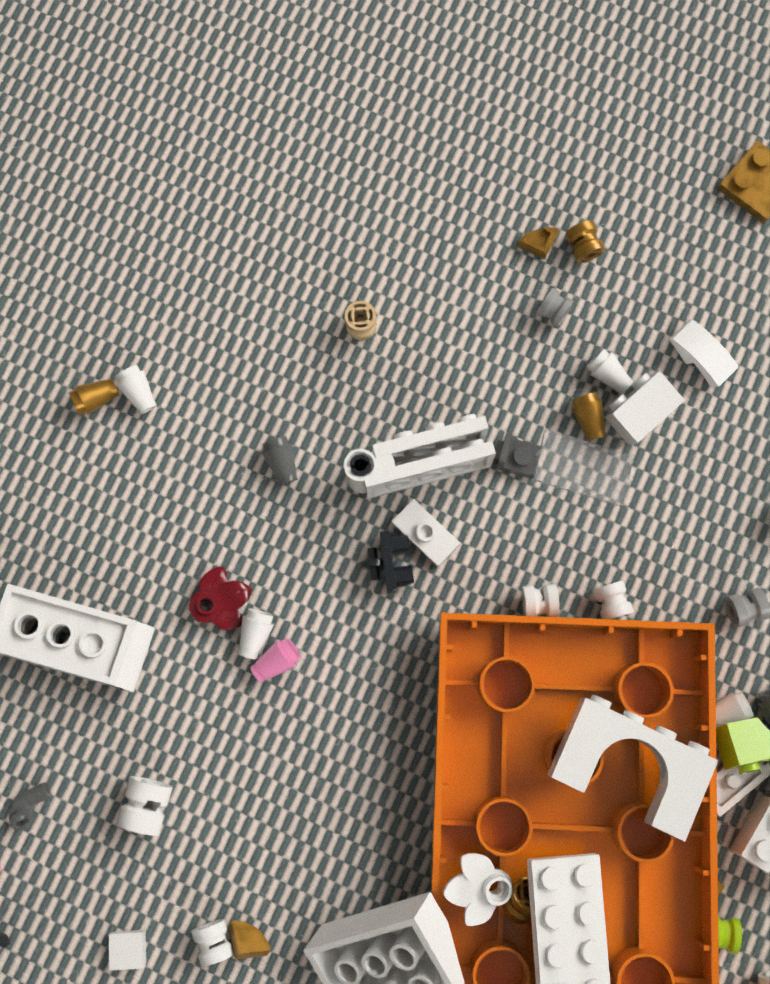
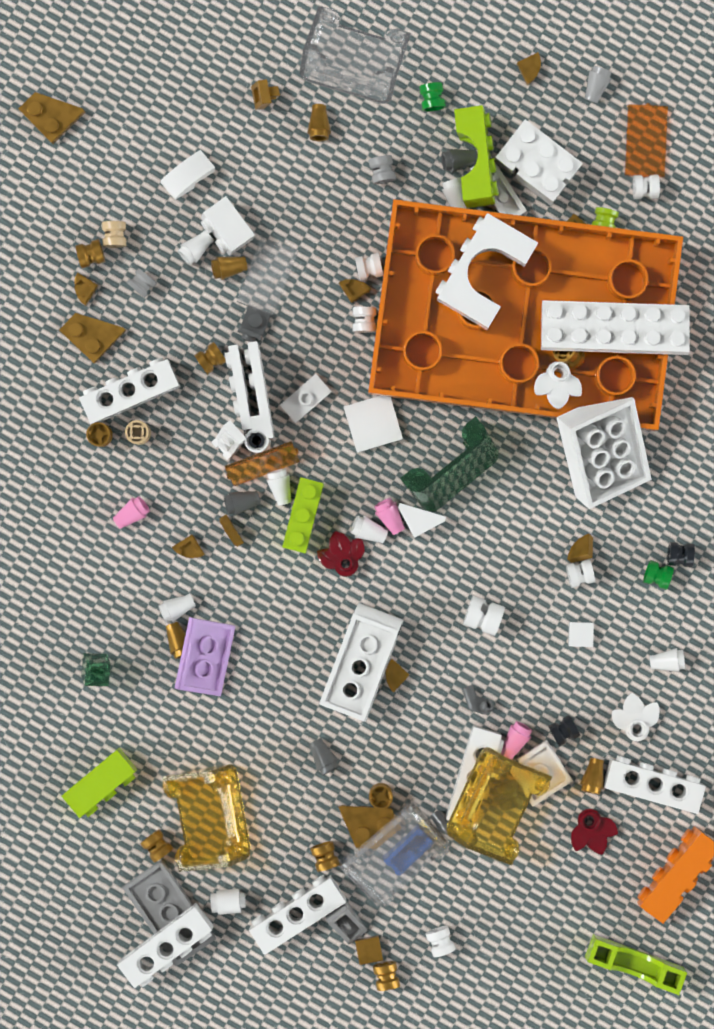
camera: 85 degrees left, 10 degrees up
(48, 293) = (95, 669): none -> clear green brick
(59, 687) = (395, 675): none -> pearl gold tile
(71, 430) = (204, 656): none -> lavender tile
(216, 400) = (189, 548): none -> pearl gold tile
(241, 450) = (231, 531): none -> pearl gold tile
(257, 323) = (132, 512): none -> bright pink cone
(267, 540) = (303, 515): none -> lime arch
(272, 702) = (419, 520): none -> white slope
(306, 508) = (280, 486): none -> white cone
(332, 481) = (262, 463): none -> clear orange piece
(352, 266) = (96, 432): none -> pearl gold wheel
(358, 431) = (229, 440): none -> white plate
(367, 780) = (459, 473): none -> clear green windscreen
(395, 261) = (166, 383): none -> white brick
(395, 576) = (314, 425): black hips -> none
(401, 626) = (373, 423): none -> white tile
(465, 402) = (210, 358): none -> pearl gold wheel
(480, 254) = (91, 335): none -> pearl gold wing
(579, 585) = (354, 289): none -> pearl gold tile
(614, 268) = (114, 234): none -> tan wheel

